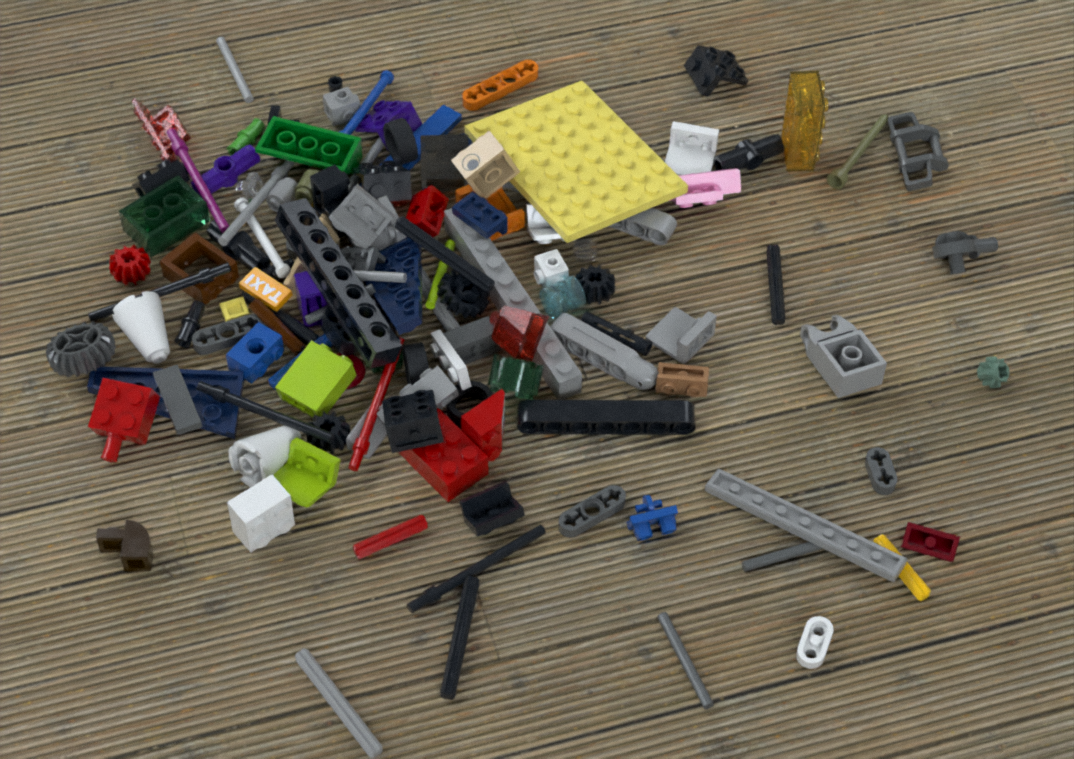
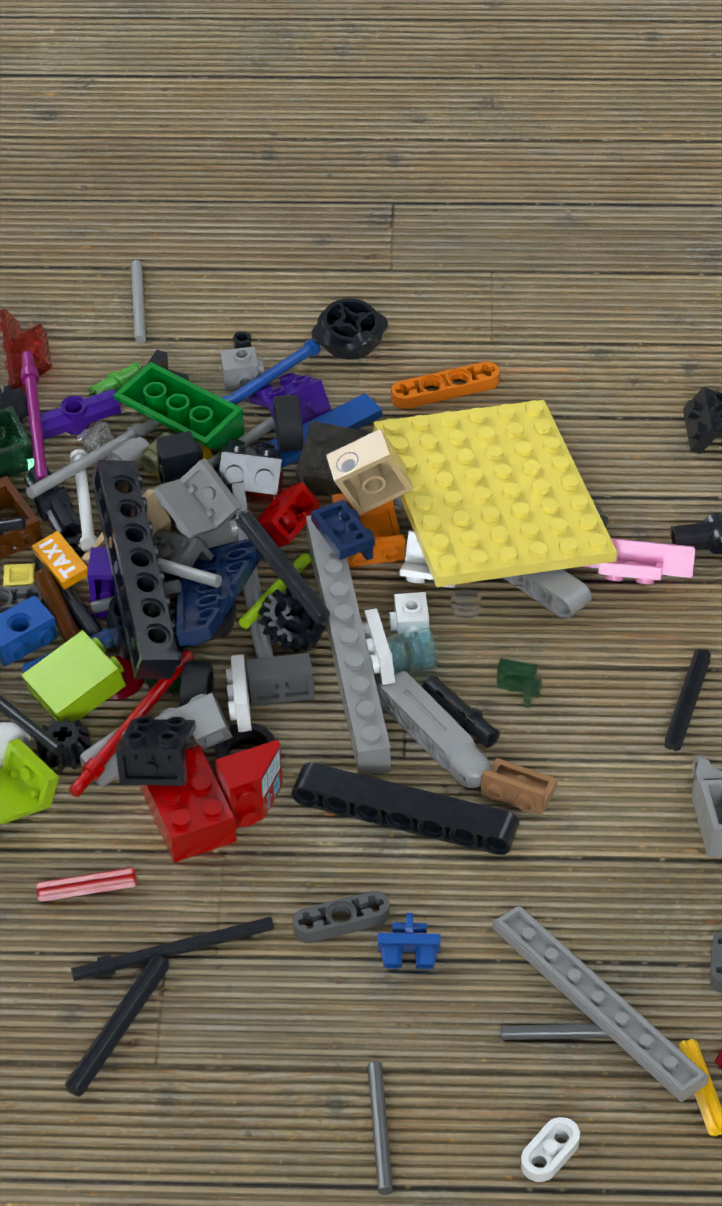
camera: 20 degrees right, 5 degrees down
(412, 49) = (349, 329): none -> black piece
(490, 509) = (217, 881): black bracket -> none
(515, 376) = (308, 731): clear green brick -> none
(518, 331) = (331, 678): clear red torso -> none
(542, 299) = (378, 647): none -> white plate
(596, 283) = (459, 646): black gear -> none
(650, 297) = (519, 677): none -> clear green bracket
(681, 334) = (542, 731): light grey bracket -> none
(691, 148) = (646, 511): white bracket -> none

